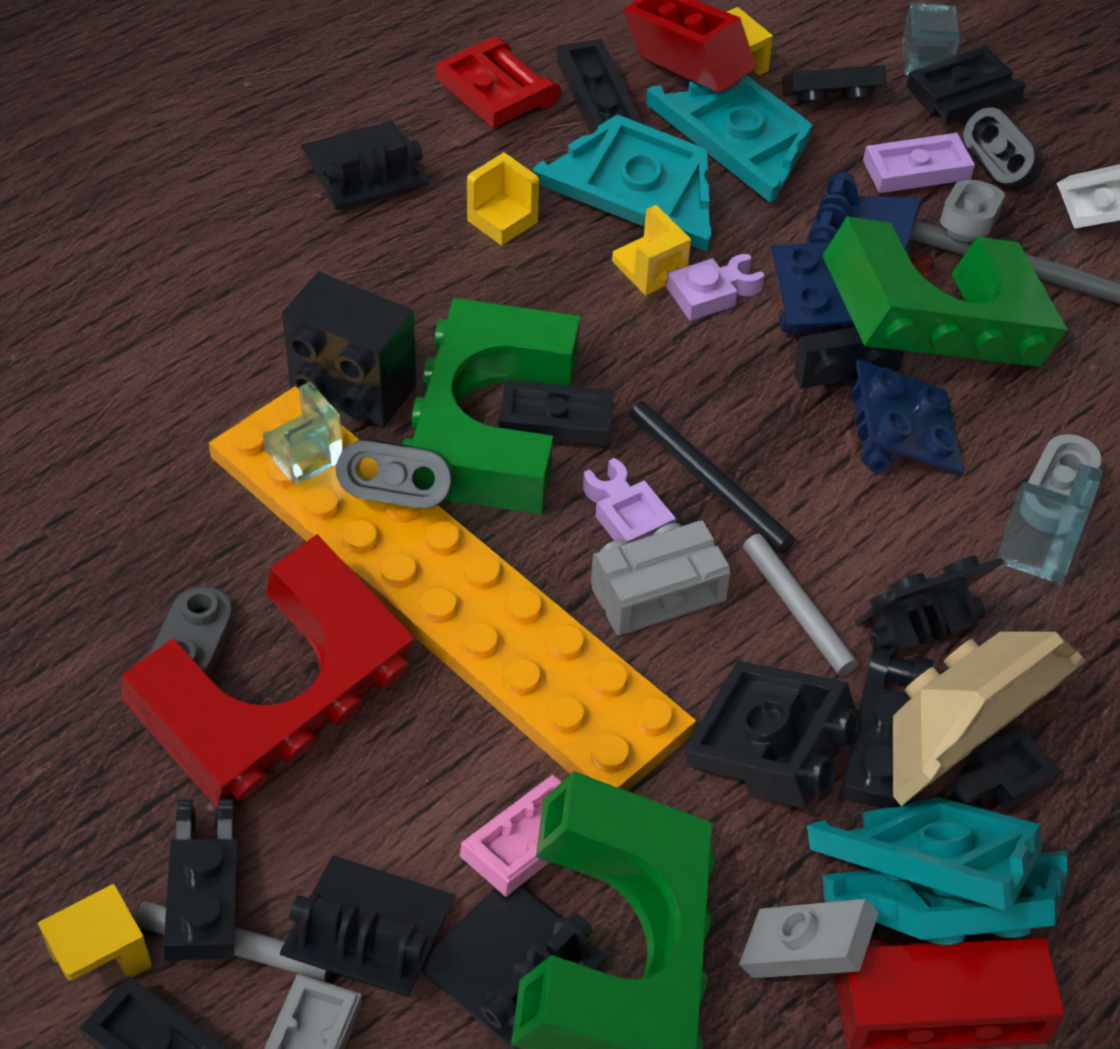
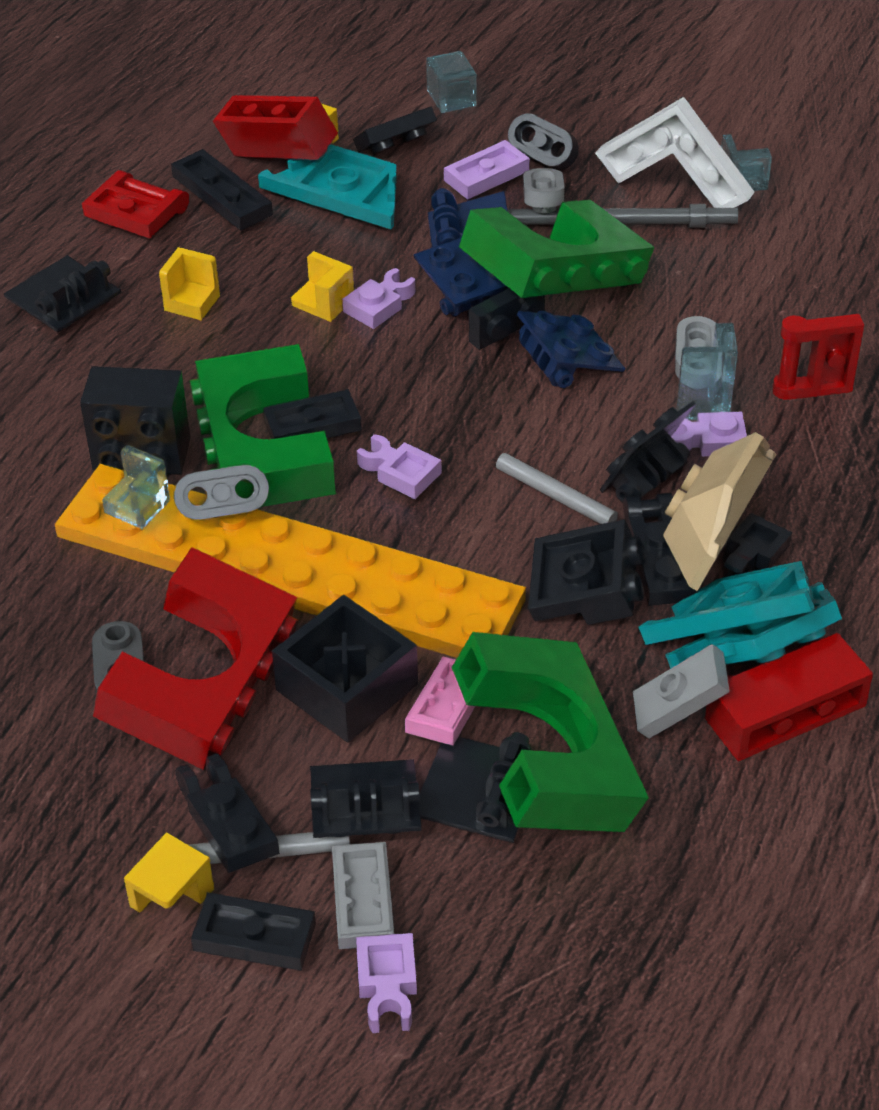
camera: 20 degrees left, 5 degrees down
(426, 749) = (345, 668): none -> black brick
(632, 168) = (281, 235): teal wing -> none
(659, 576) = (449, 502): light grey brick -> none
(712, 477) = (446, 426): black bar -> none
(965, 85) = (492, 106): black plate -> none
(1032, 599) = (711, 431): none -> lavender plate

